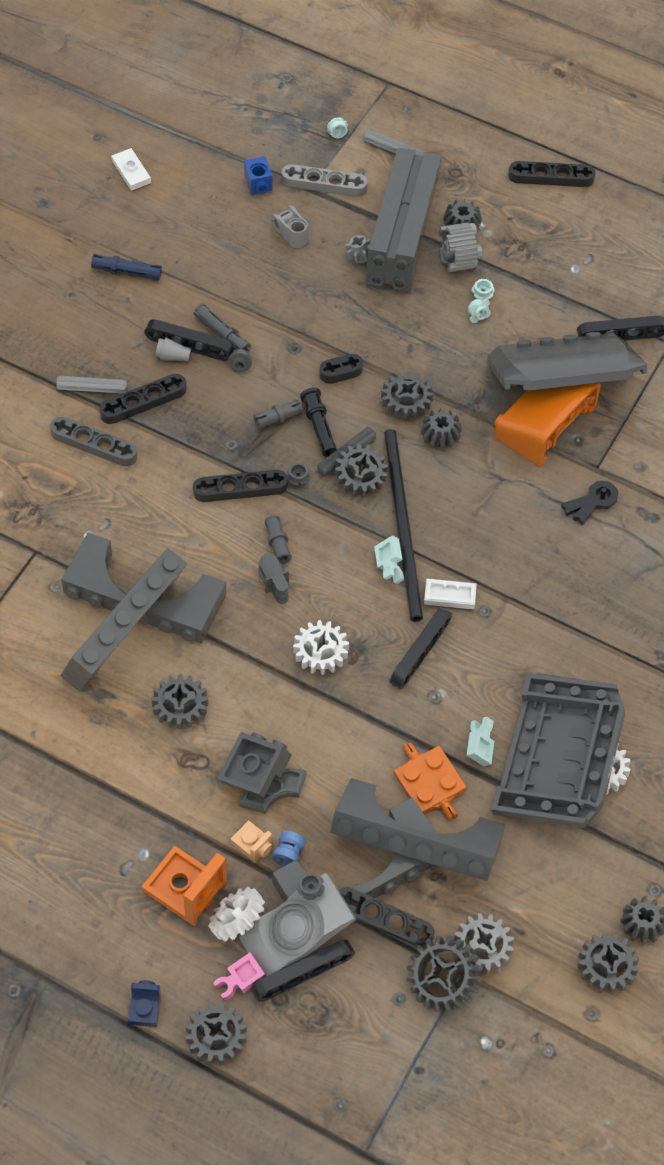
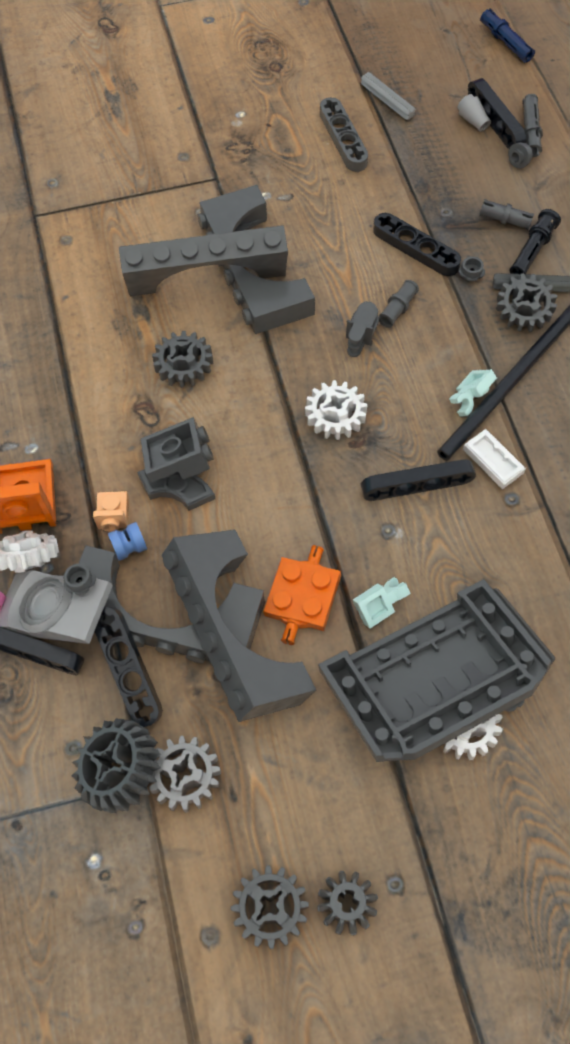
camera: 50 degrees right, 5 degrees up
(141, 395) = (415, 128): black beam -> none

